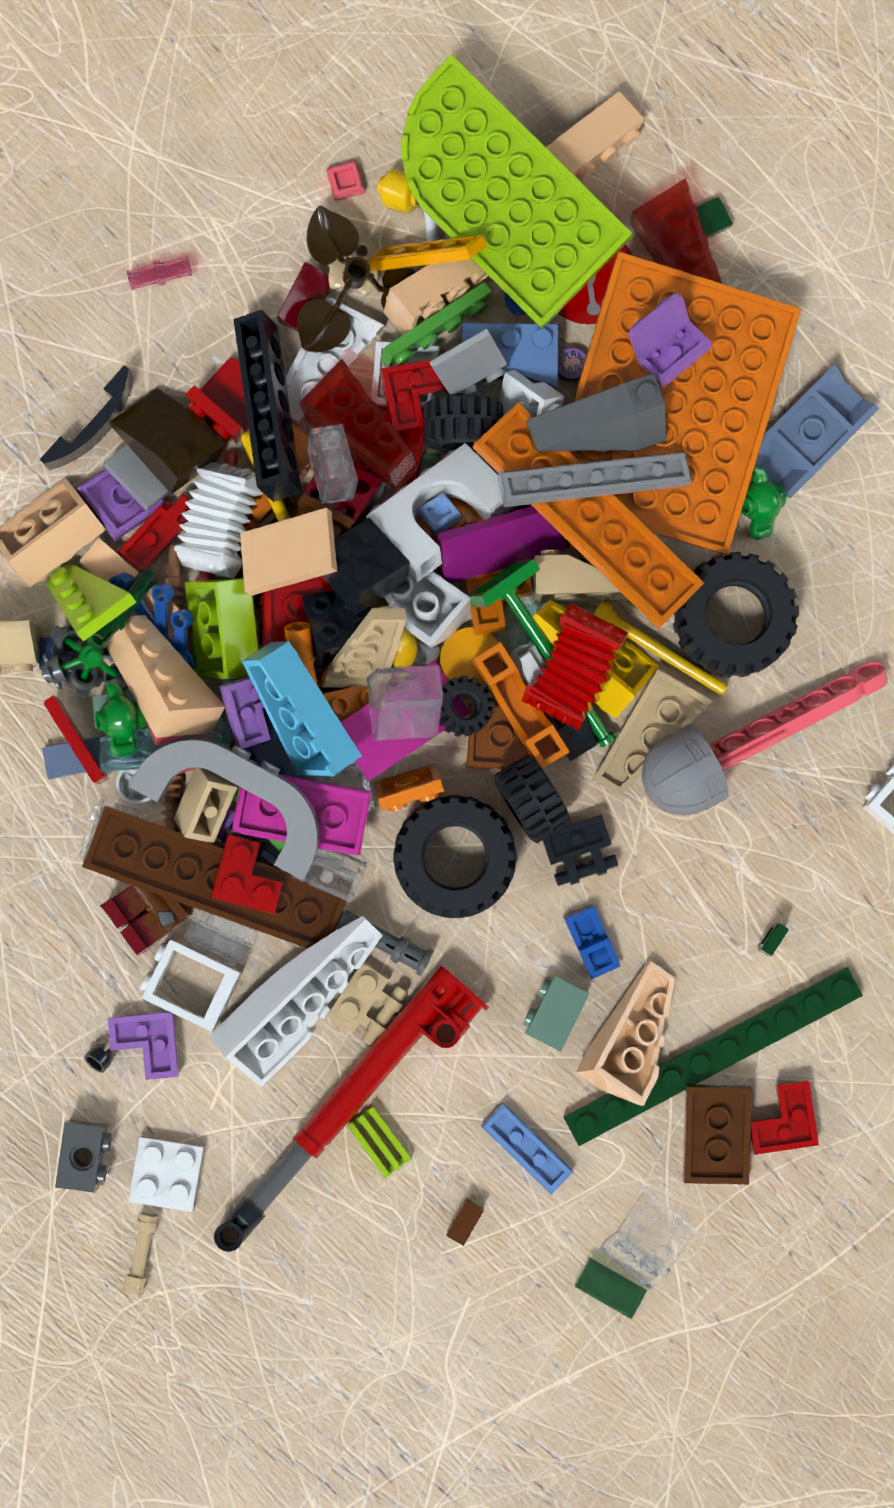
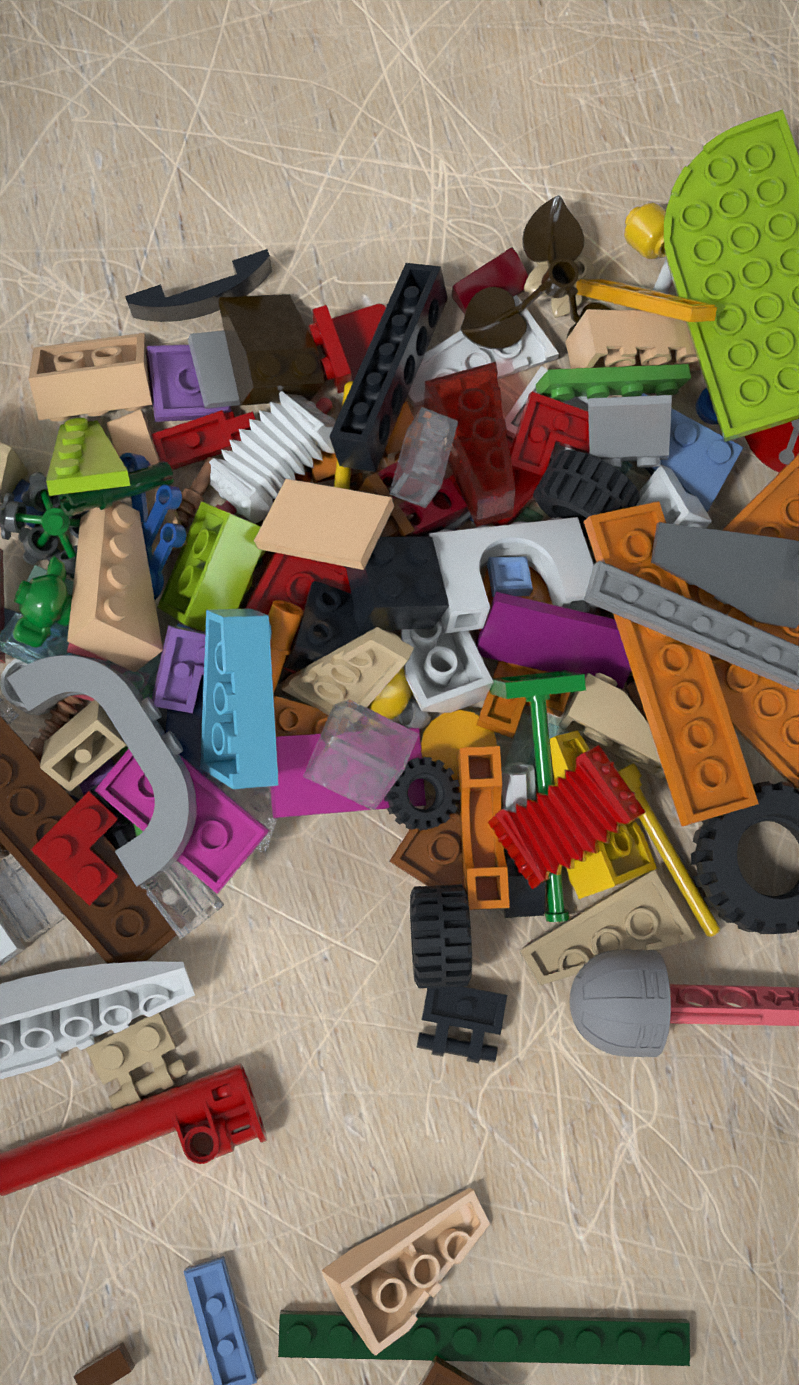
camera: 25 degrees right, 5 degrees down
(159, 273) = (357, 182): clear pink pin -> none
(345, 181) = (598, 193): coral tile -> none
(395, 1164) = (65, 1258): lime tile -> none
(399, 948) = (206, 1020): dark grey pin -> none
(407, 787) = (314, 848): orange plate -> none
(455, 812) = (266, 962): black tyre -> none
(555, 1013) = (336, 1189): sand green brick -> none
(571, 364) = (732, 499): tile -> none
(591, 941) = (420, 1130): blue slope -> none
(772, 939) = (622, 1243): dark green tile -> none

